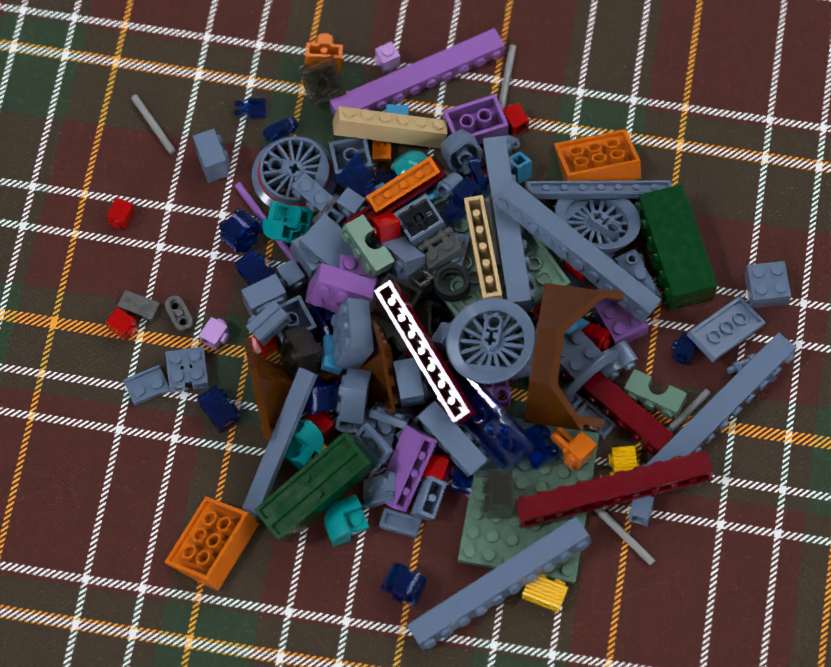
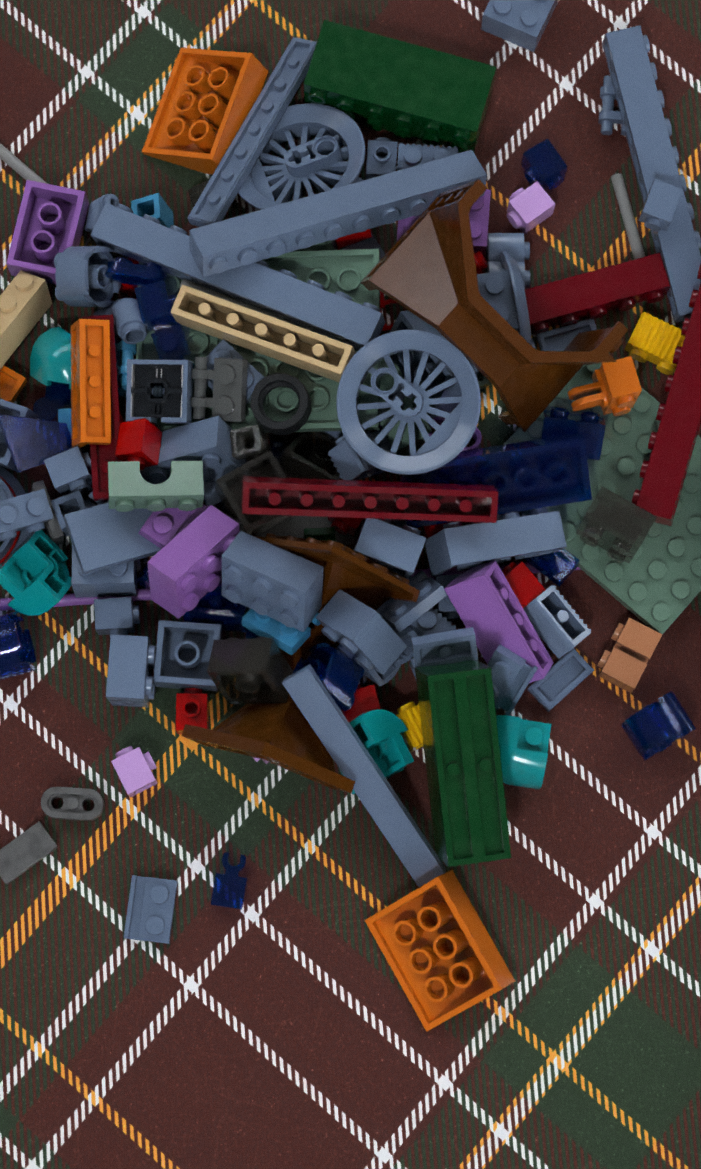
camera: 60 degrees left, 10 degrees up
(121, 324) = (39, 892): red brick -> none
(179, 371) = (174, 845): sand blue piece -> none
(181, 417) = (229, 887): none -> clear blue plate
(218, 409) = (249, 829): clear blue brick -> none
(253, 268) = (77, 661): clear blue brick -> none
(268, 322) = (177, 687): sand blue brick -> none
(436, 549) = (629, 654): none -> nougat piece
(516, 119) = (75, 175): red brick -> none
(655, 354) = (529, 207): none -> lavender brick
(668, 403) = (565, 258): sand green arch -> none
(697, 416) = (660, 205): none -> sand blue brick
(726, 328) = (551, 97): sand blue tile -> none

